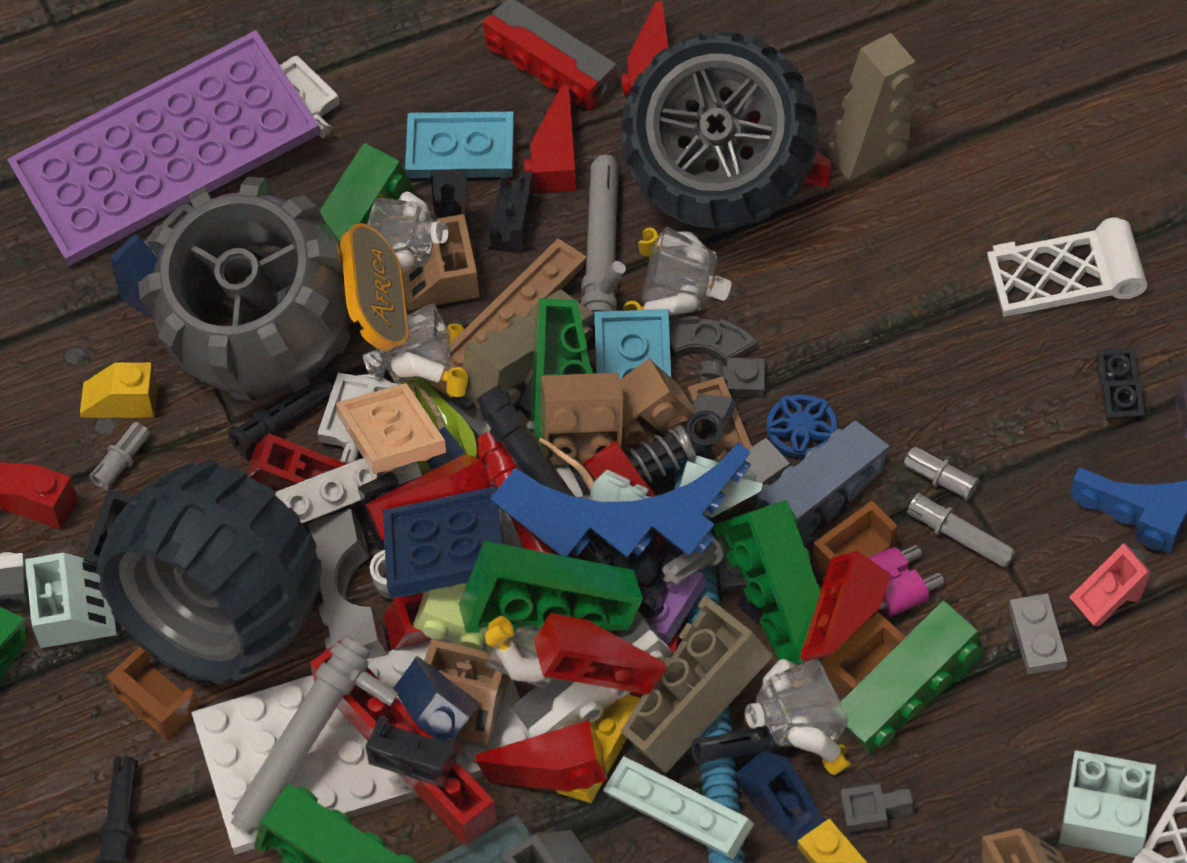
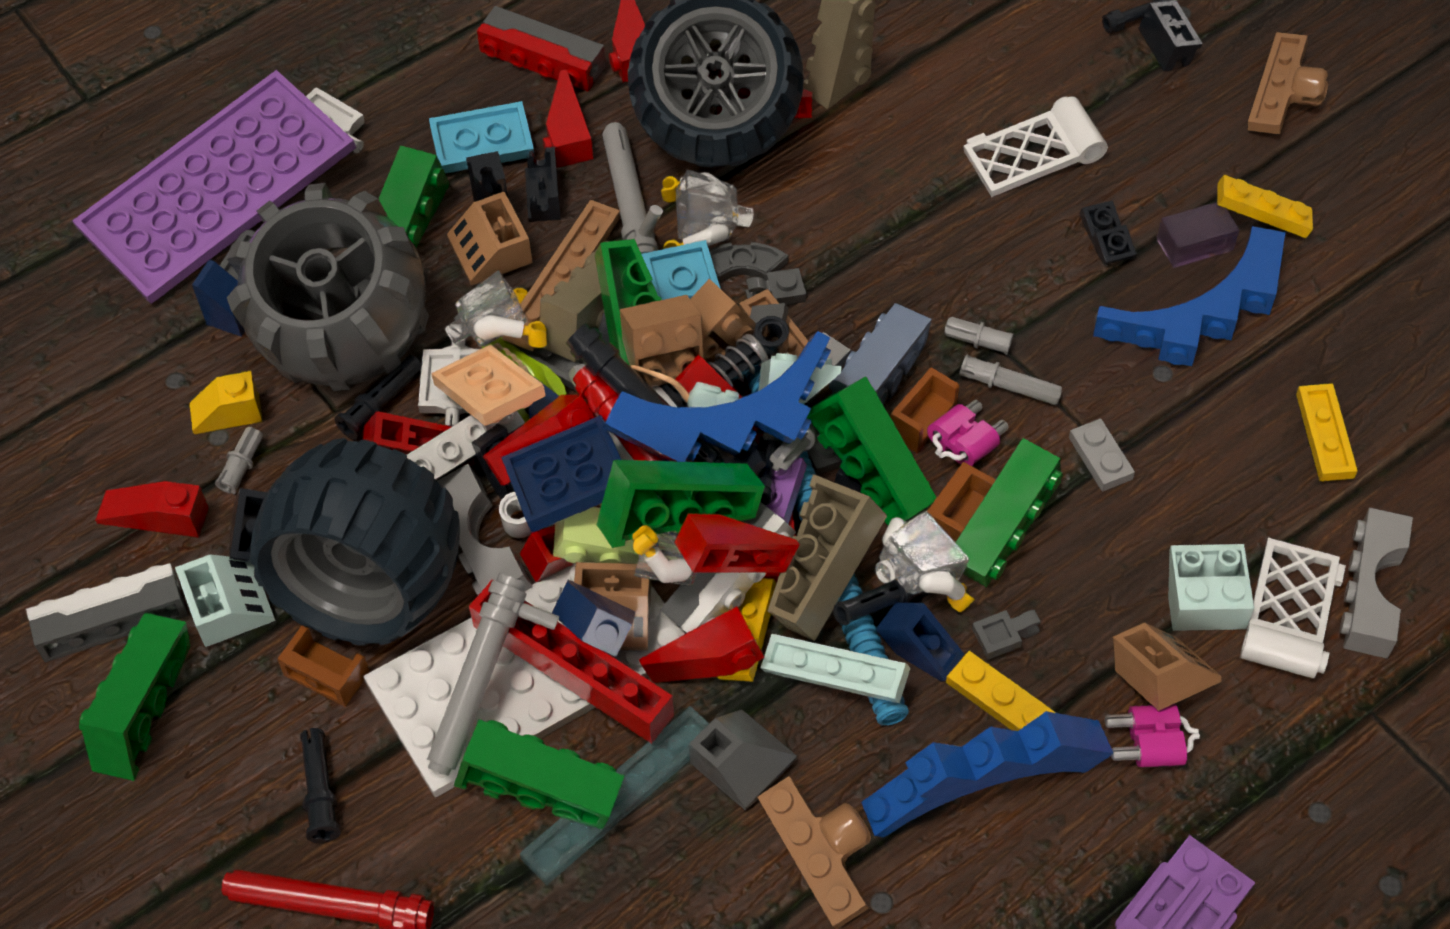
camera: 15 degrees left, 0 degrees up
(374, 287) = (444, 263): tile -> none
(407, 228) = (450, 223): clear torso -> none
(411, 753) = (586, 669): black hinge -> none
(800, 425) = (846, 318): blue wheel -> none
(847, 599) = (936, 458): red slope -> none
(1114, 582) = (1155, 399): coral slope -> none

